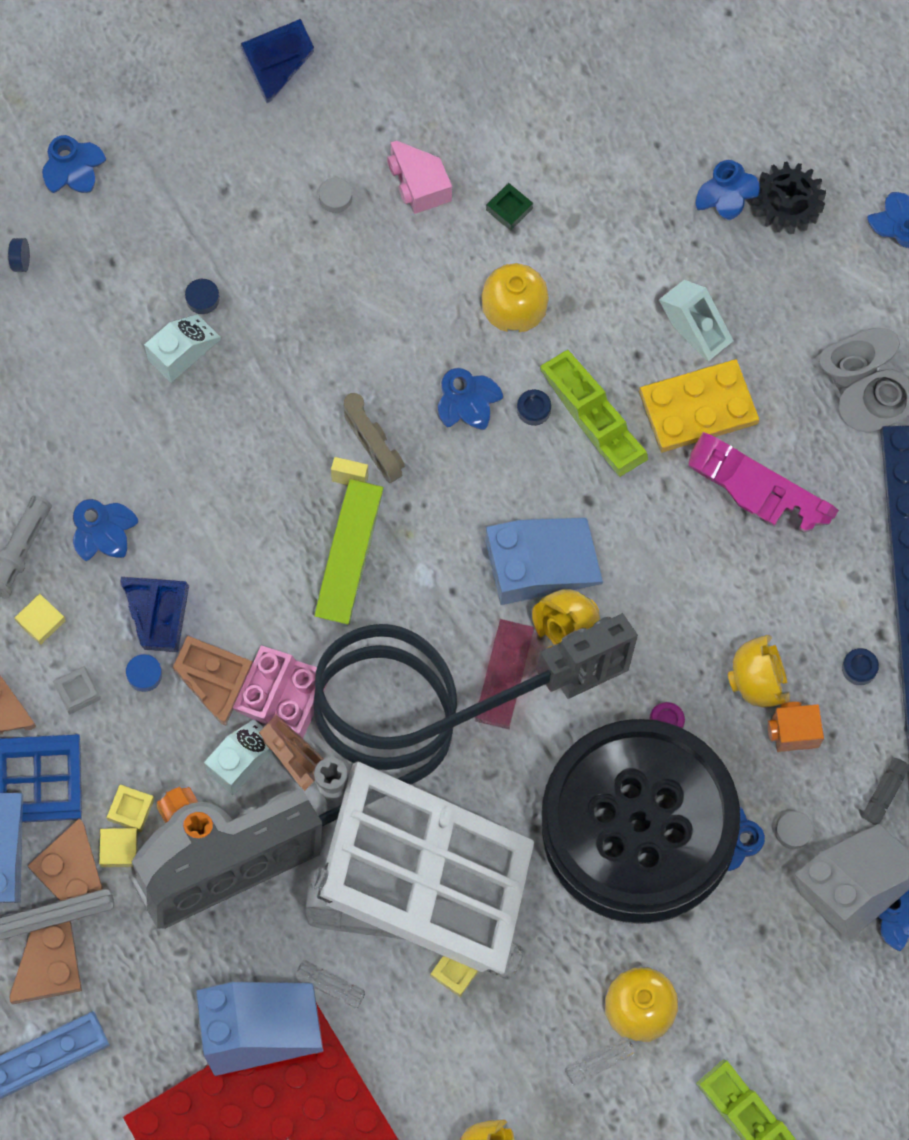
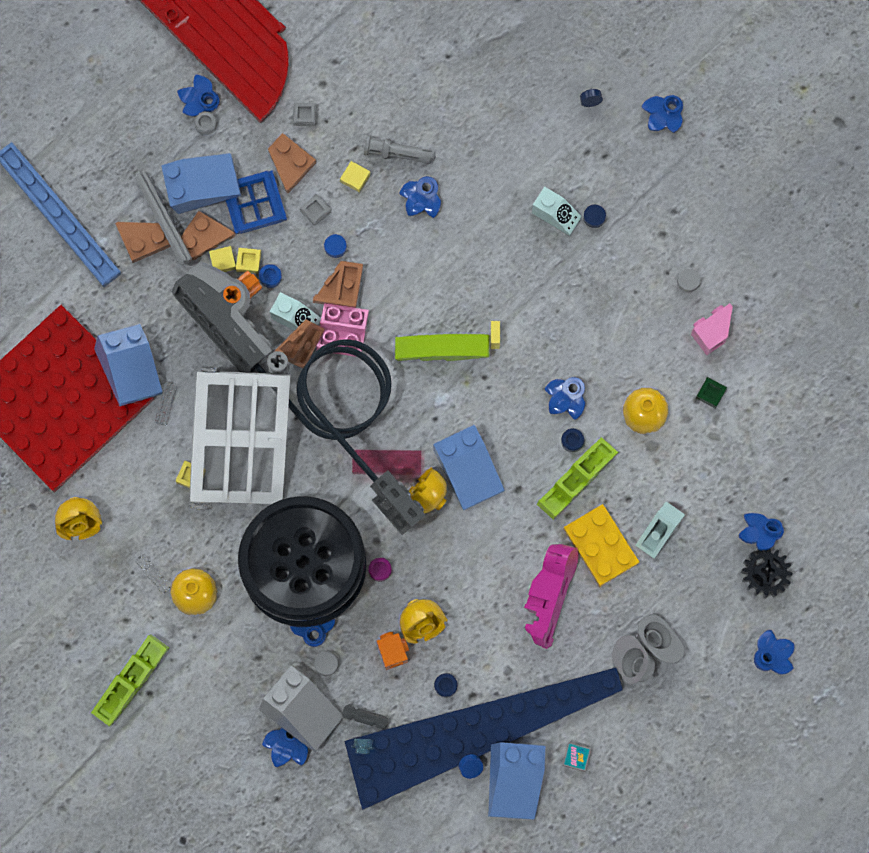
camera: 80 degrees right, 5 degrees up
(157, 611) = (375, 243): clear blue wing -> none
(163, 778) = (270, 276): none -> blue tile
(277, 56) = (777, 219): clear blue wing -> none
(372, 438) = (522, 343): dark tan plate -> none

